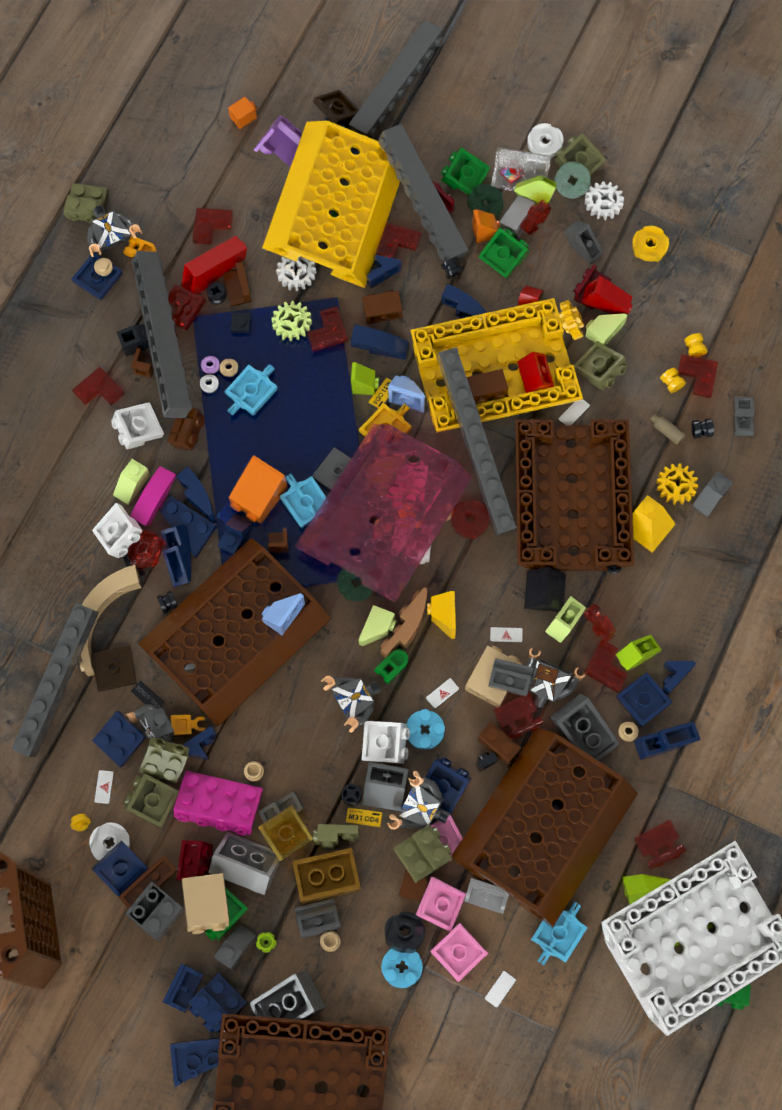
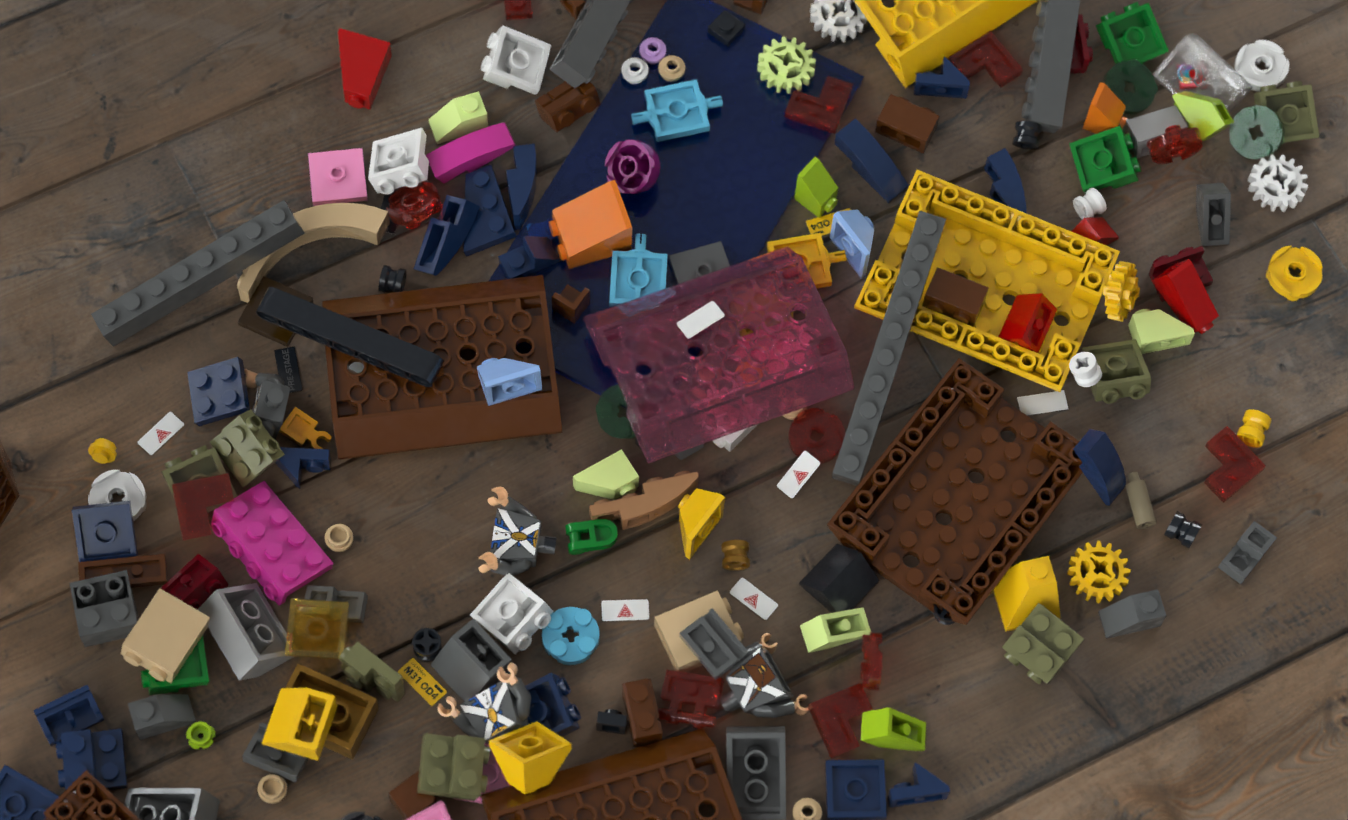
camera: 30 degrees right, 5 degrees down
(51, 491) = (362, 66): none -> red slope
(87, 565) = (337, 176): none -> bright pink plate
(157, 813) = (193, 498): none -> clear red plate
(174, 653) = (349, 337): none -> black beam
(253, 439) = (632, 166): none -> magenta cylinder
(321, 894) = (300, 721): none -> yellow slope
(363, 500) = (700, 319): none -> white sticker
(462, 815) = (530, 756): none -> yellow slope
(477, 547) = (798, 474): none -> white sticker
(479, 618) = (735, 555): none -> pearl gold wheel
(515, 283) = (1090, 204): none -> white wheel
(591, 380) = (1085, 369): none -> white wheel
(636, 424) = (1101, 465): none -> dark blue slope
(672, 380) = (1192, 448): yellow wheel -> none
(679, 546) = (1042, 644): none -> olive plate

